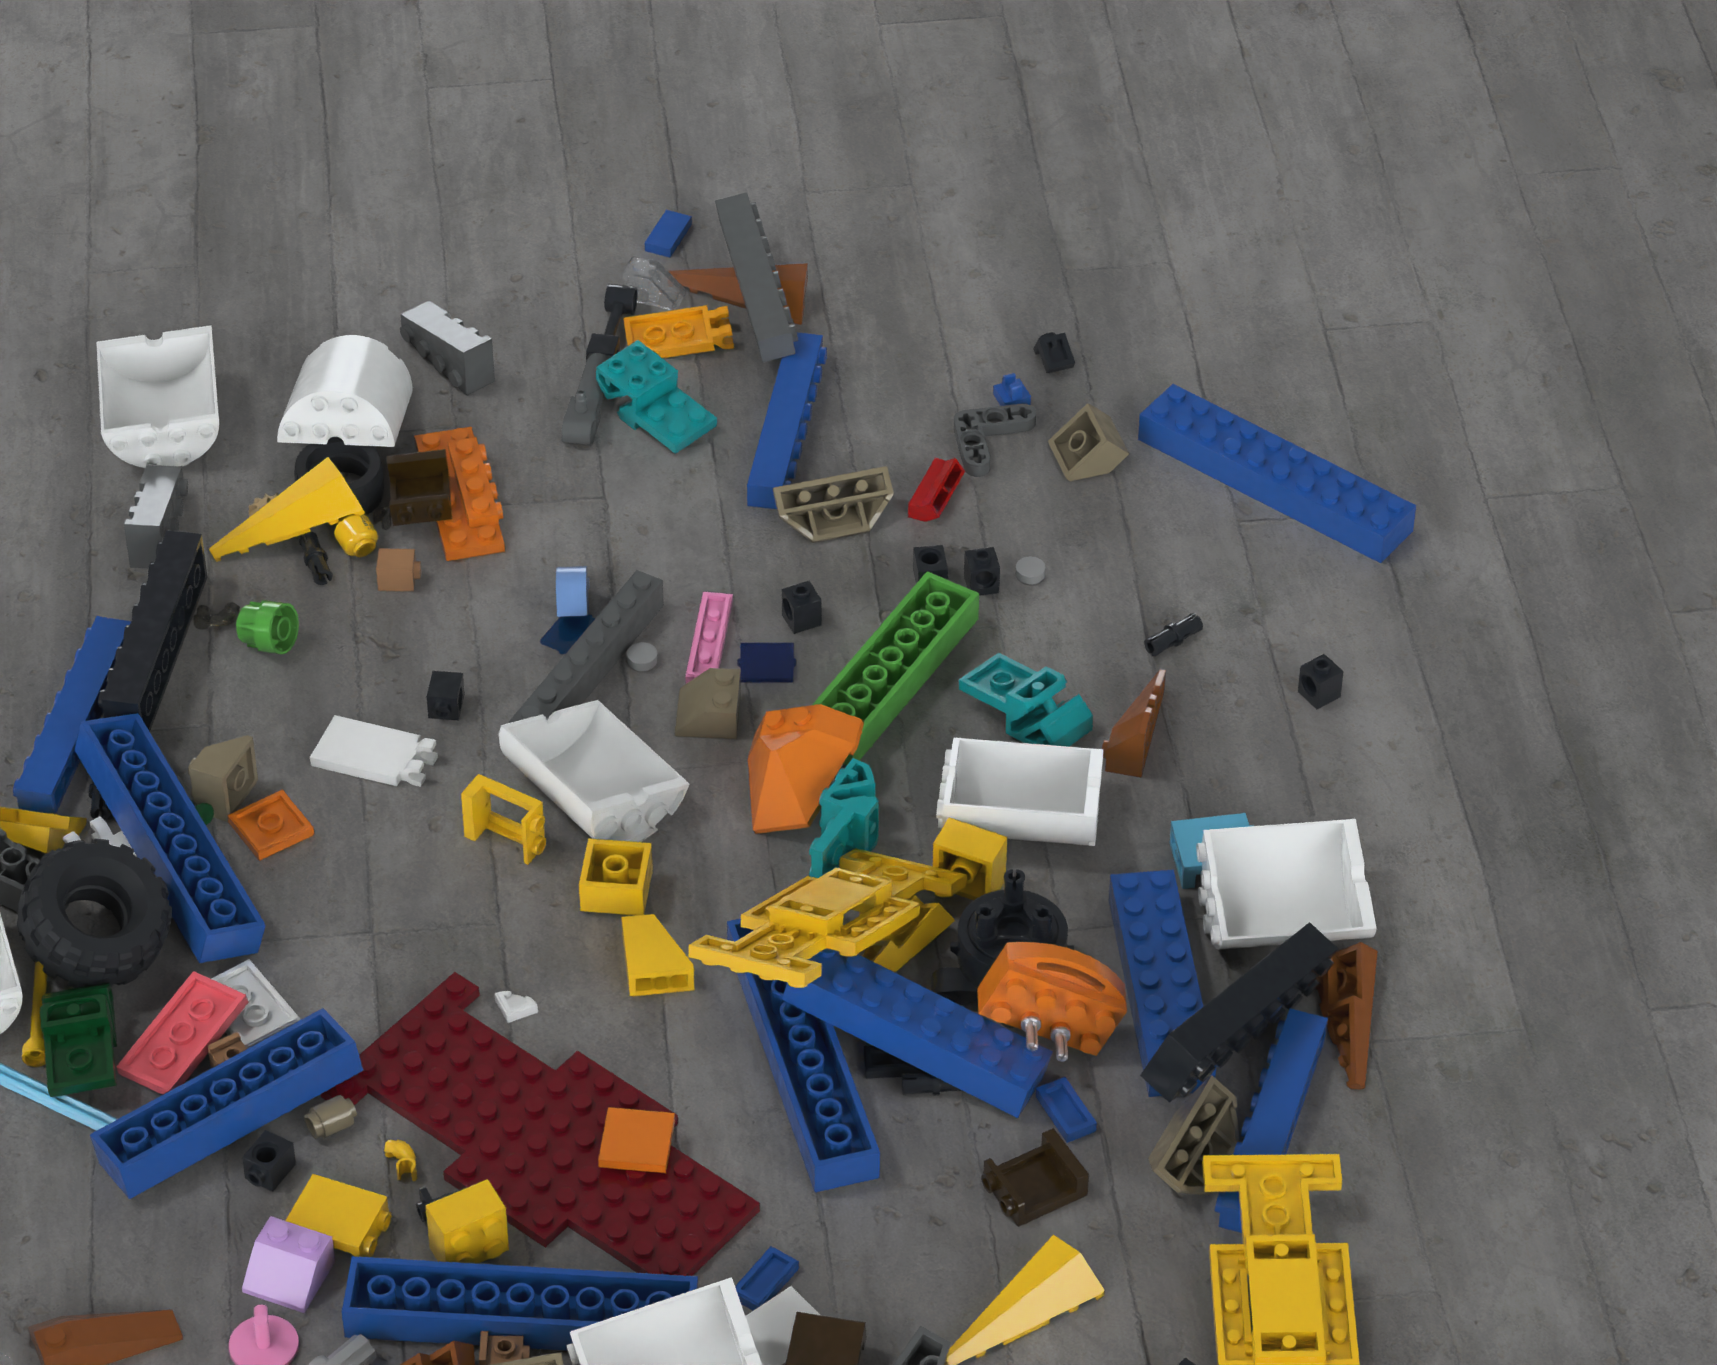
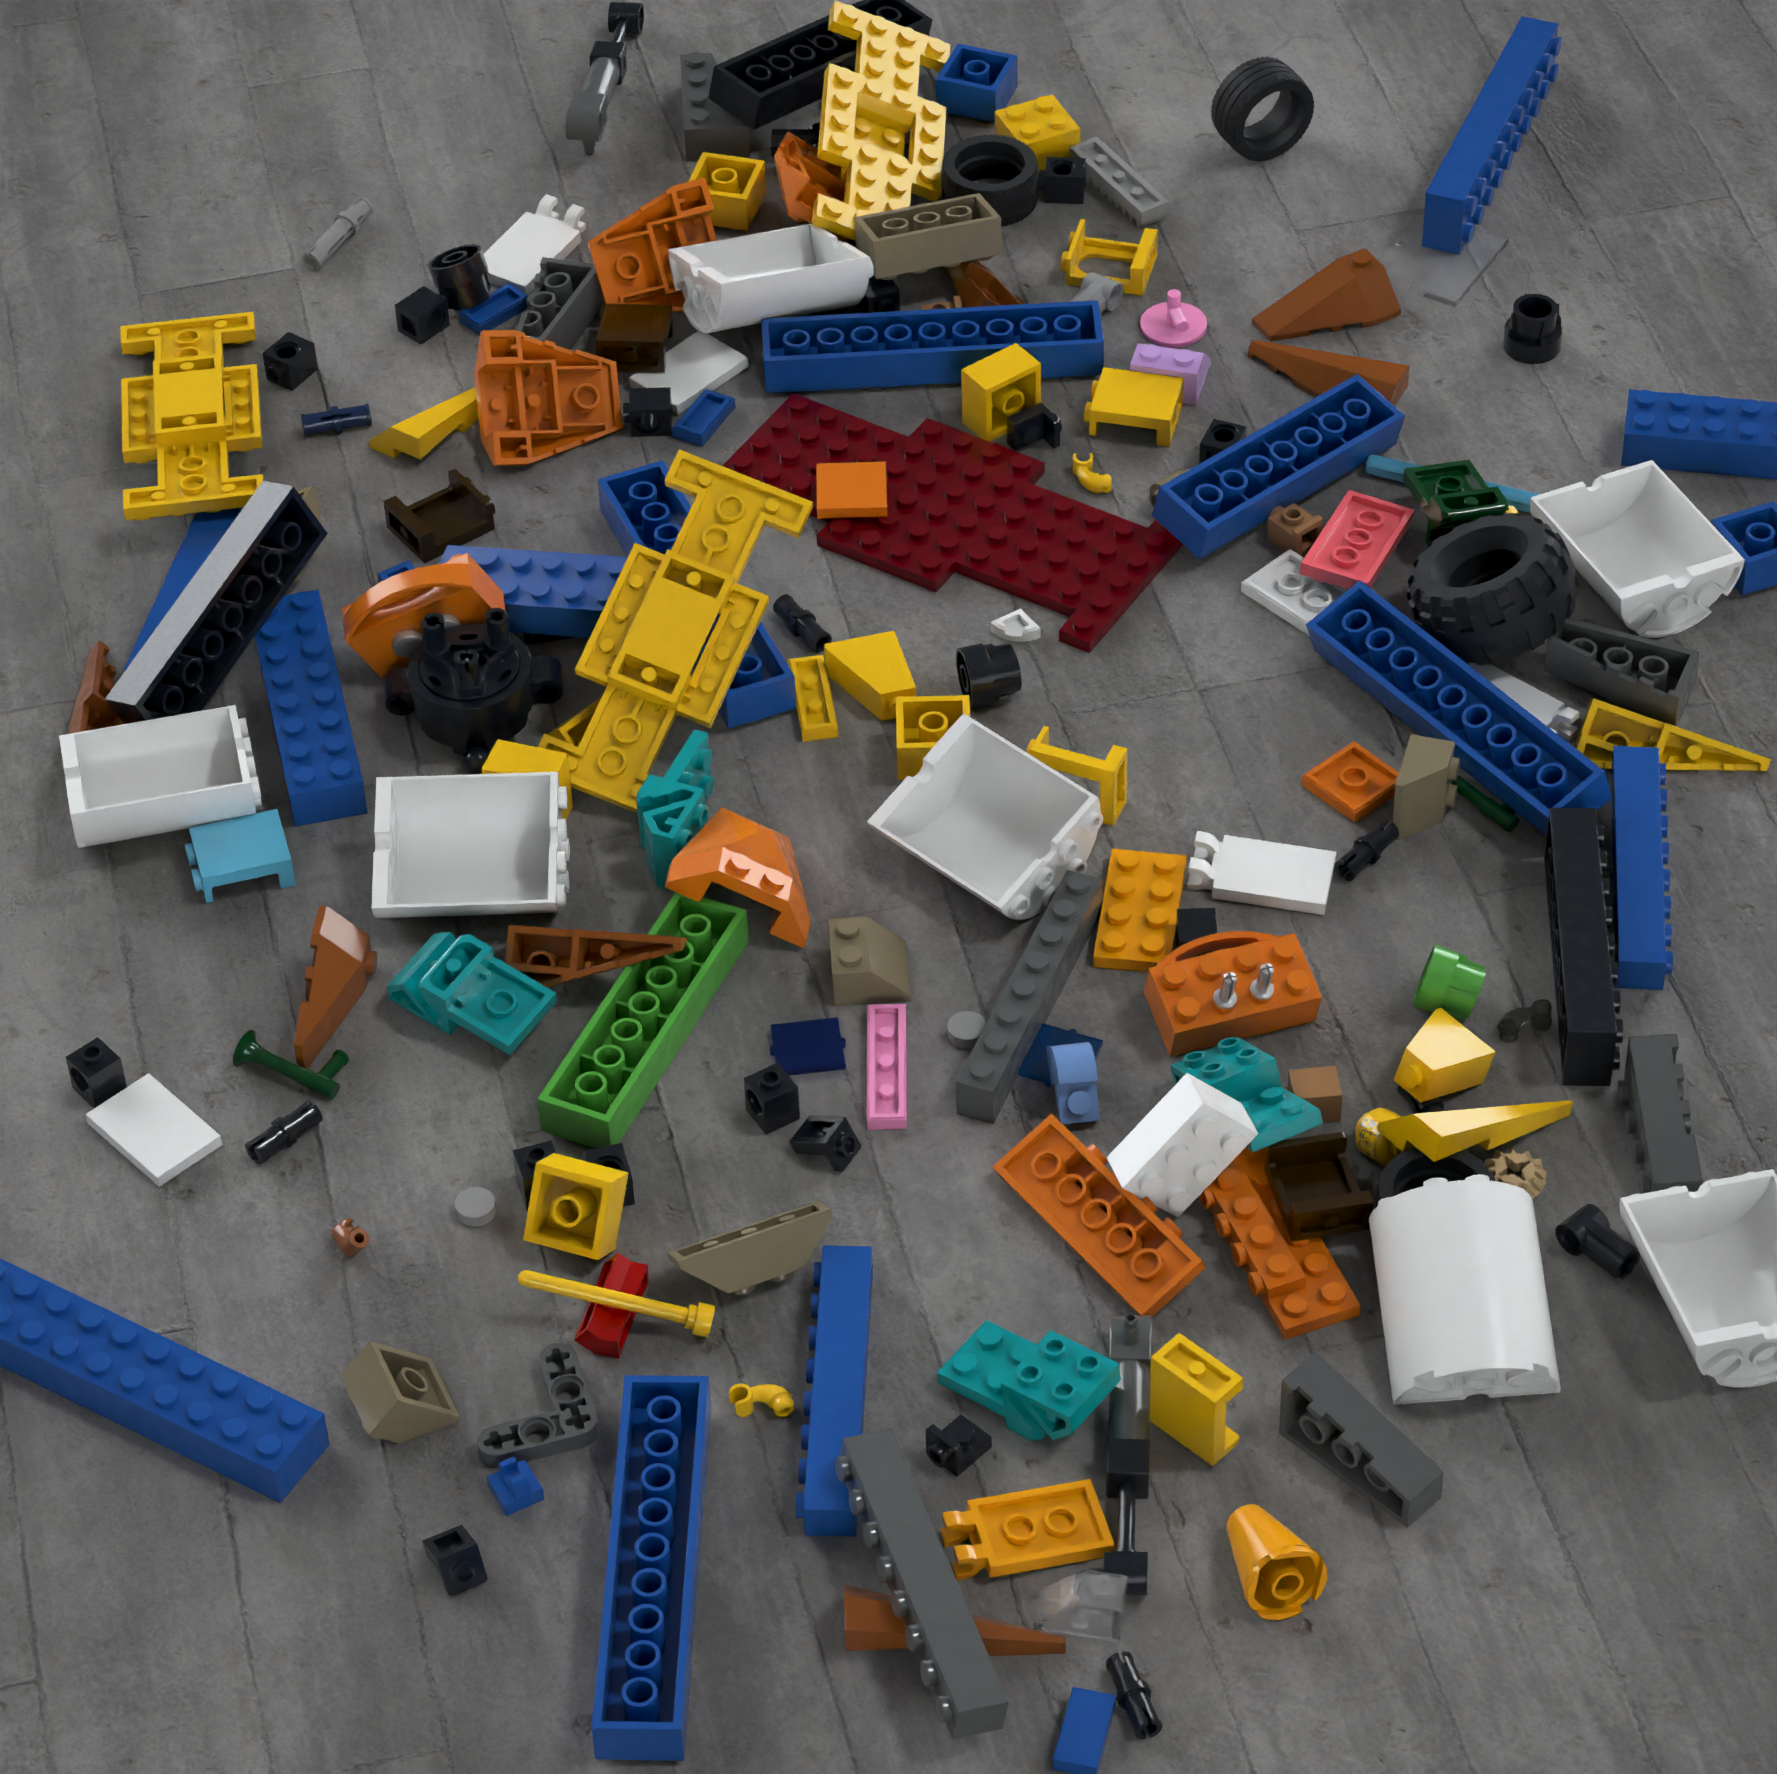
camera: 175 degrees right, 0 degrees up
(106, 1214) = (1322, 370): none -> dark orange wedge
(236, 459) = (1590, 1234): none -> black piece
(284, 759) = (1366, 850): none -> black pin
(298, 568) = (1443, 1059): none -> yellow slope
(434, 635) = (1238, 991): none -> orange piece
(450, 547) = (1255, 1082): none -> teal piece
(473, 739) = (1139, 909): none -> light orange plate
(511, 493) = (1182, 1145): none -> white brick
(527, 284) = (1273, 1564): none -> light orange cone
(554, 931) = (987, 672): none -> black piece
(556, 355) = (1191, 1398): none -> yellow panel
(577, 502) = (1099, 1218): none -> orange plate
(633, 243) = (1133, 1695): none -> black pin
(707, 1025) = (790, 612): none -> black pin
(710, 980) = (813, 698): none -> yellow tile
(713, 386) = (956, 1445): none -> black bracket
(766, 579) = (827, 1137): none -> black bracket
(819, 1275) = (649, 412): none -> black brick
(851, 427) = (773, 1395): none -> yellow arm
(923, 326) = (652, 1569): none -> blue brick
(927, 1281) = (541, 397): none -> orange wedge
(936, 708) = (566, 955): none -> dark orange wedge
(938, 470) = (695, 1318): none -> yellow piece
(955, 525) = (575, 1206): none -> yellow brick
(1126, 557) = (349, 1238): none -> dark orange arm
(1136, 1317) = (336, 419): none -> dark blue pin
(1201, 689) = (250, 1051): none -> dark green piece
(1270, 649) = (154, 1129): none -> white tile

